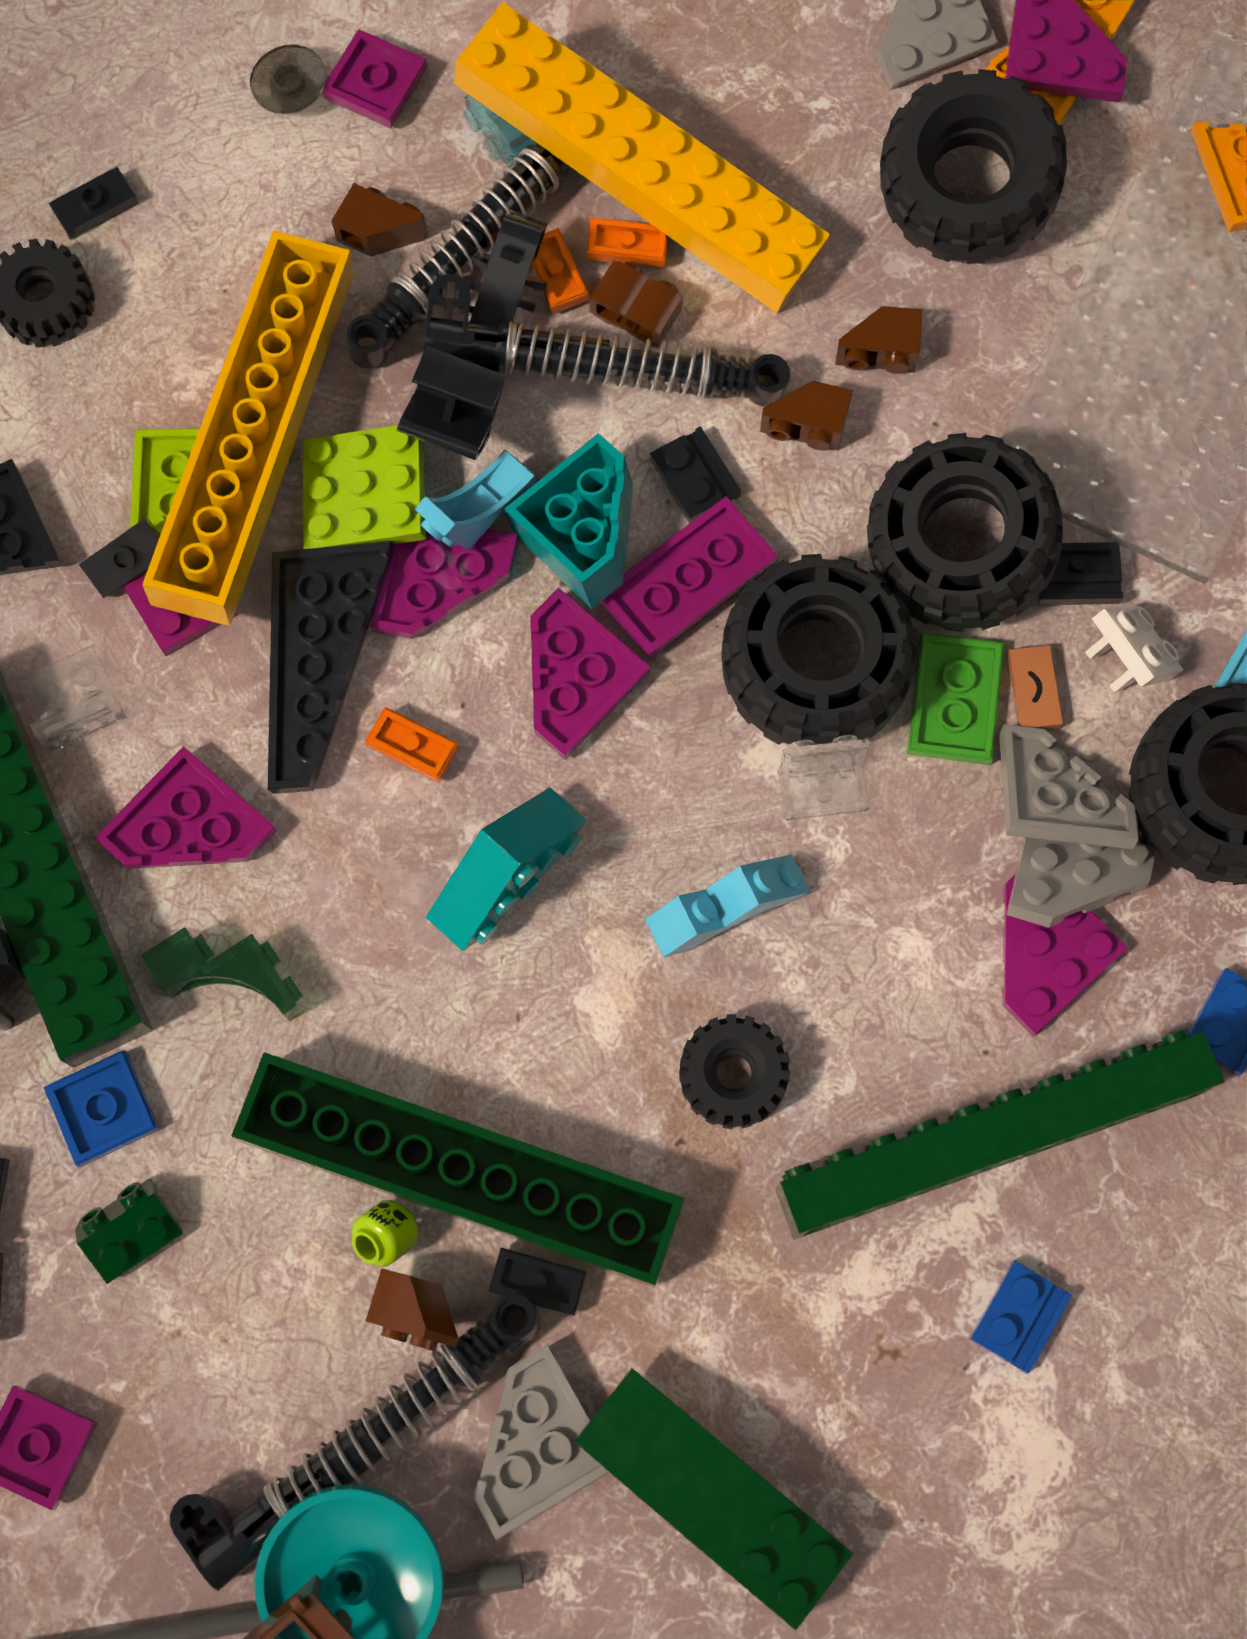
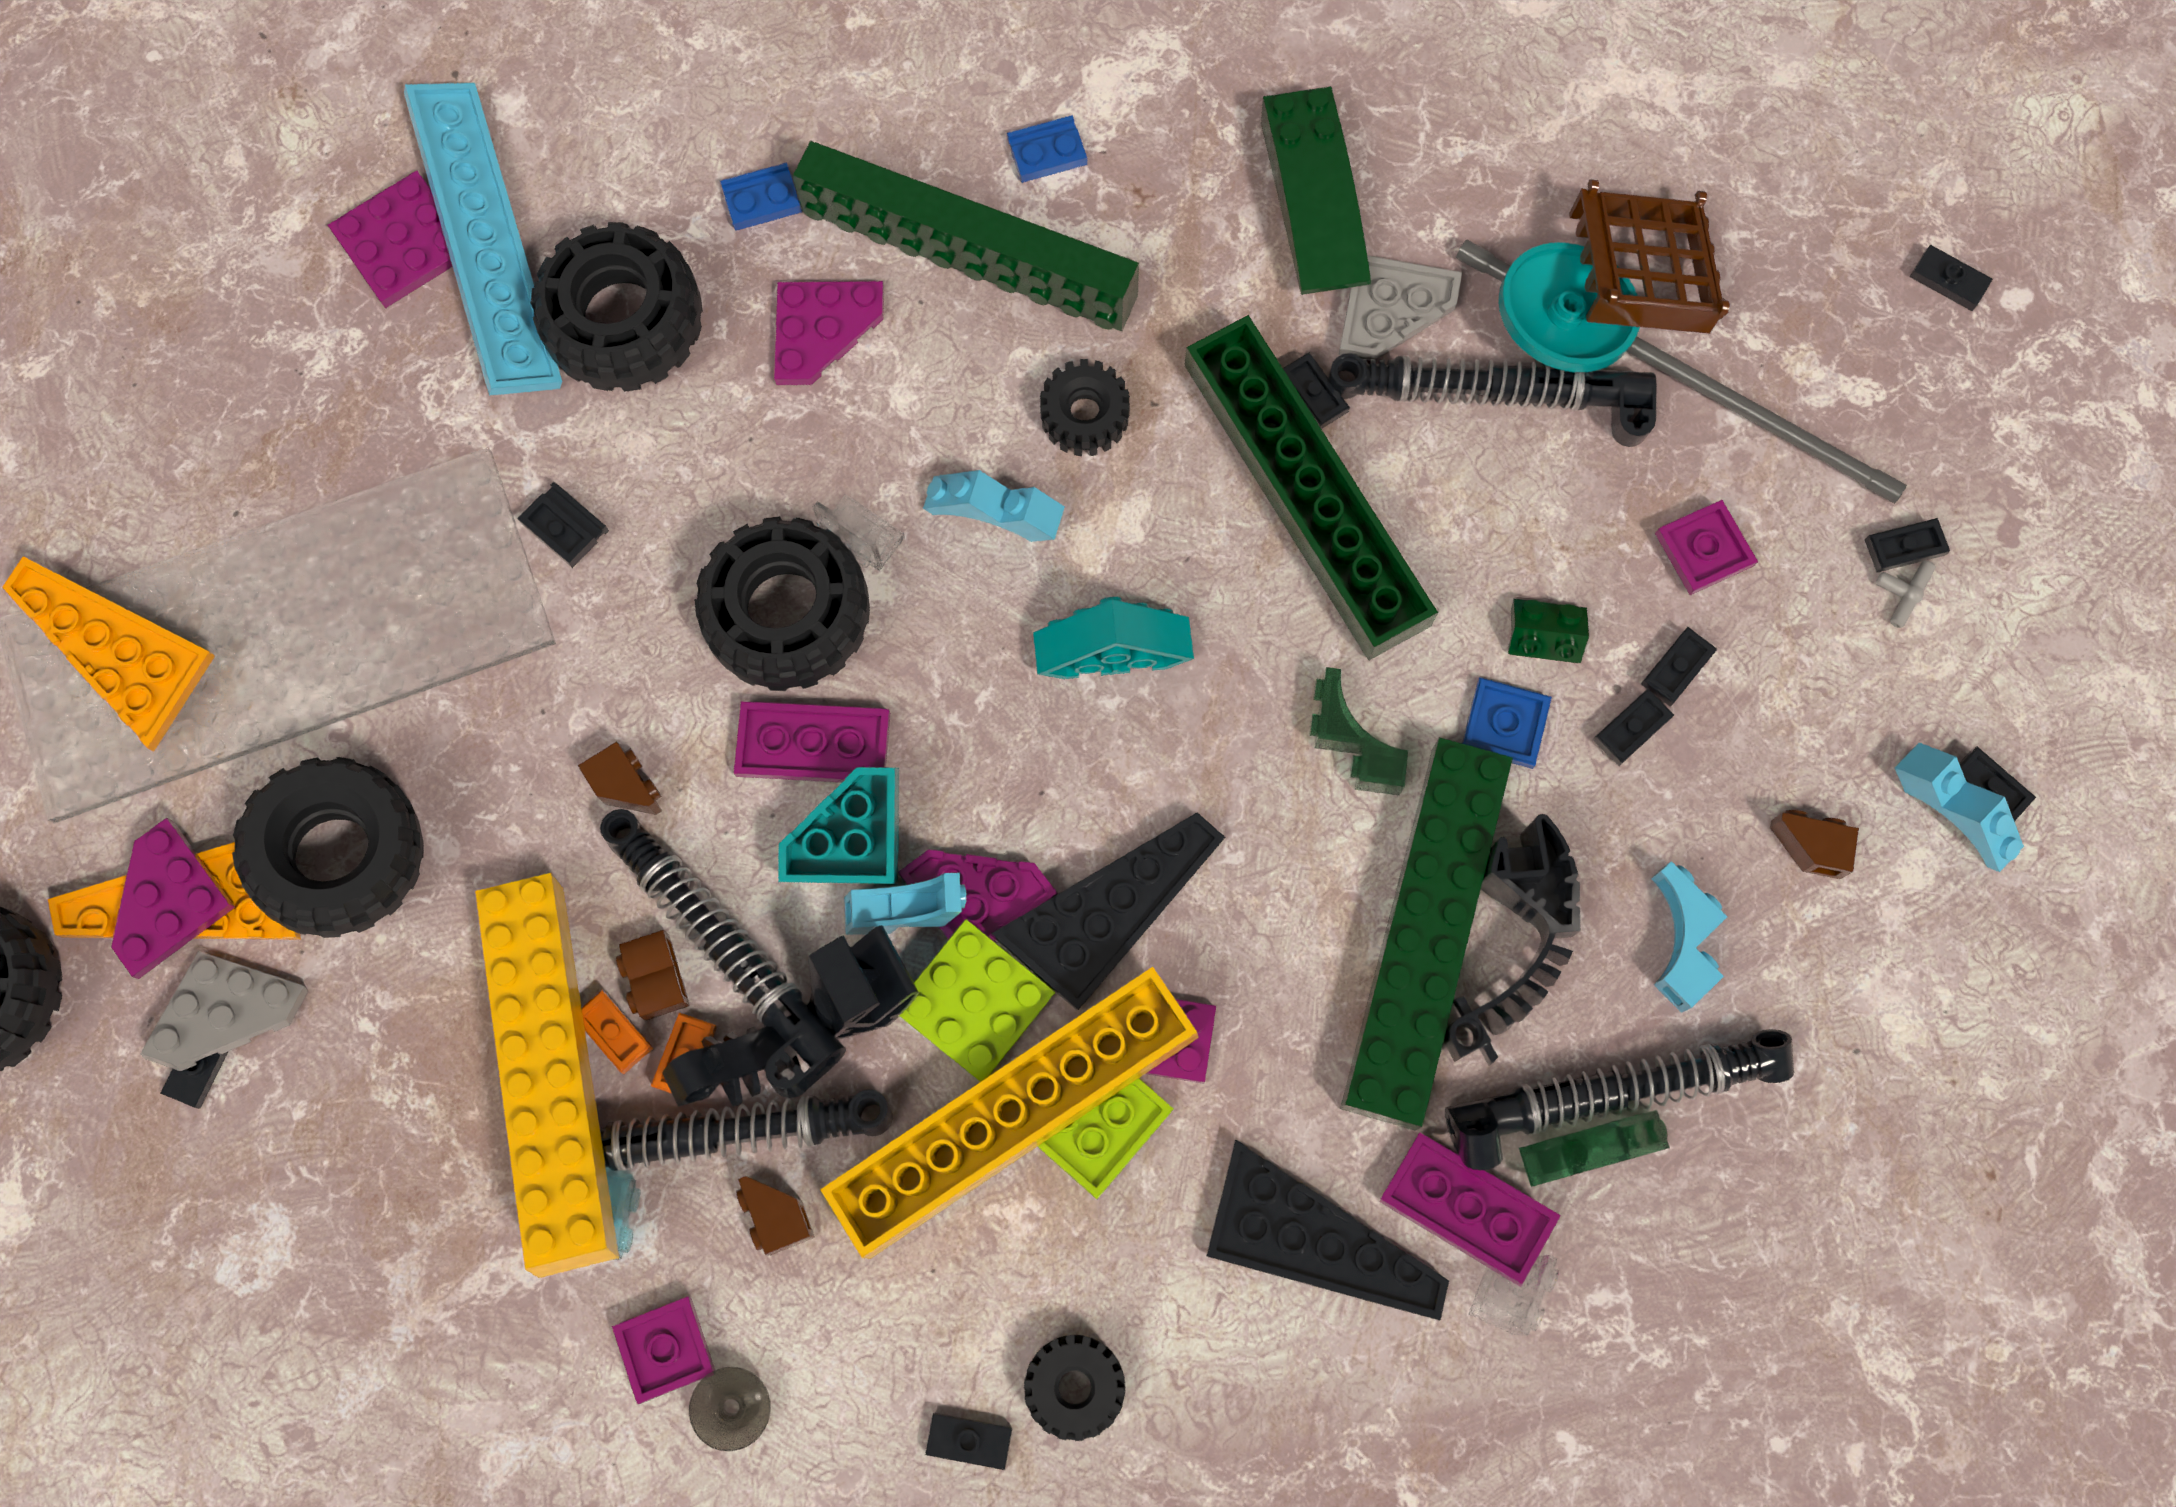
camera: 140 degrees left, 0 degrees up
(70, 699) = (1309, 1024): clear bracket -> none
(122, 558) = (1186, 1097): black plate -> none
(185, 820) = (1298, 867): magenta plate -> none
(384, 1233) = (1387, 487): lime head -> none
(412, 744) = (1101, 788): orange plate -> none
(412, 1307) = (1405, 426): reddish brown slope -> none
(576, 672) = (947, 742): magenta plate -> none
(694, 473) = (736, 815): black plate -> none
(883, 341) = (514, 792): reddish brown slope -> none
(955, 698) = (716, 511): bright green tile -> none
(976, 590) = (623, 646): black tyre -> none
(1035, 687) = (667, 480): nougat tile -> none
(1059, 796) = (725, 395): light grey plate -> none
(1074, 877) = (763, 347): light grey plate -> none
(1132, 636) = (580, 439): white plate -> none

